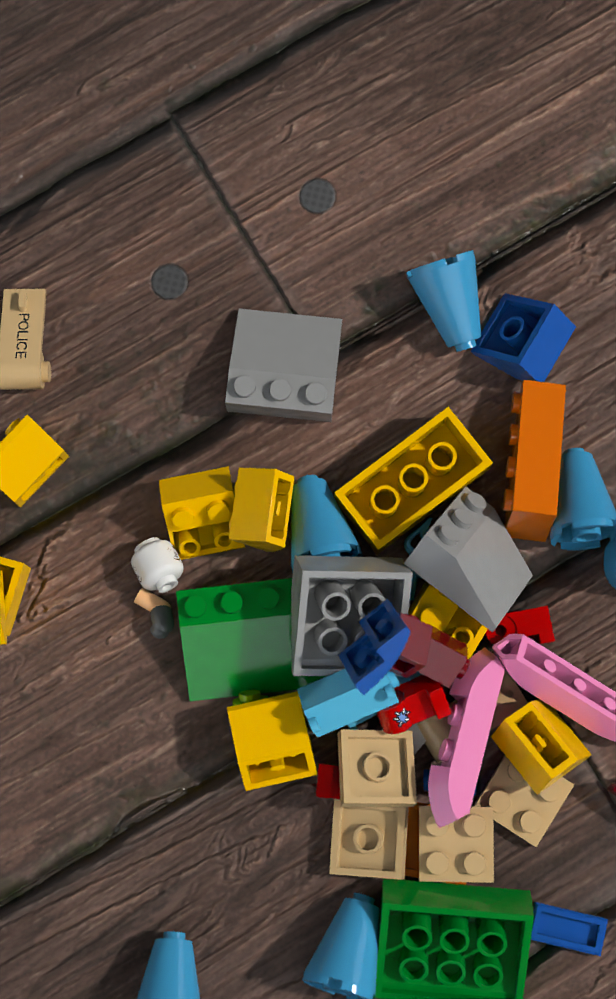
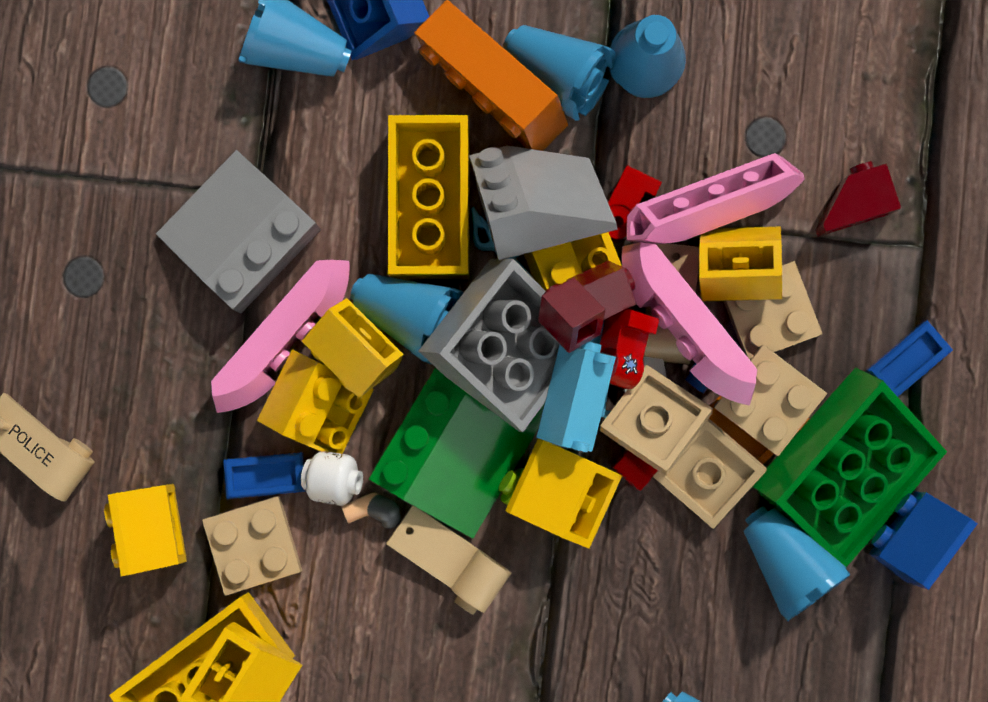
camera: 50 degrees left, 5 degrees up
(66, 545) = (252, 545): none -> tan plate
(123, 515) = (263, 475): none -> blue tile
(162, 695) = (449, 559): none -> tan door
(187, 447) = (246, 373): none -> bright pink brick
(378, 649) = (558, 340): blue slope -> none

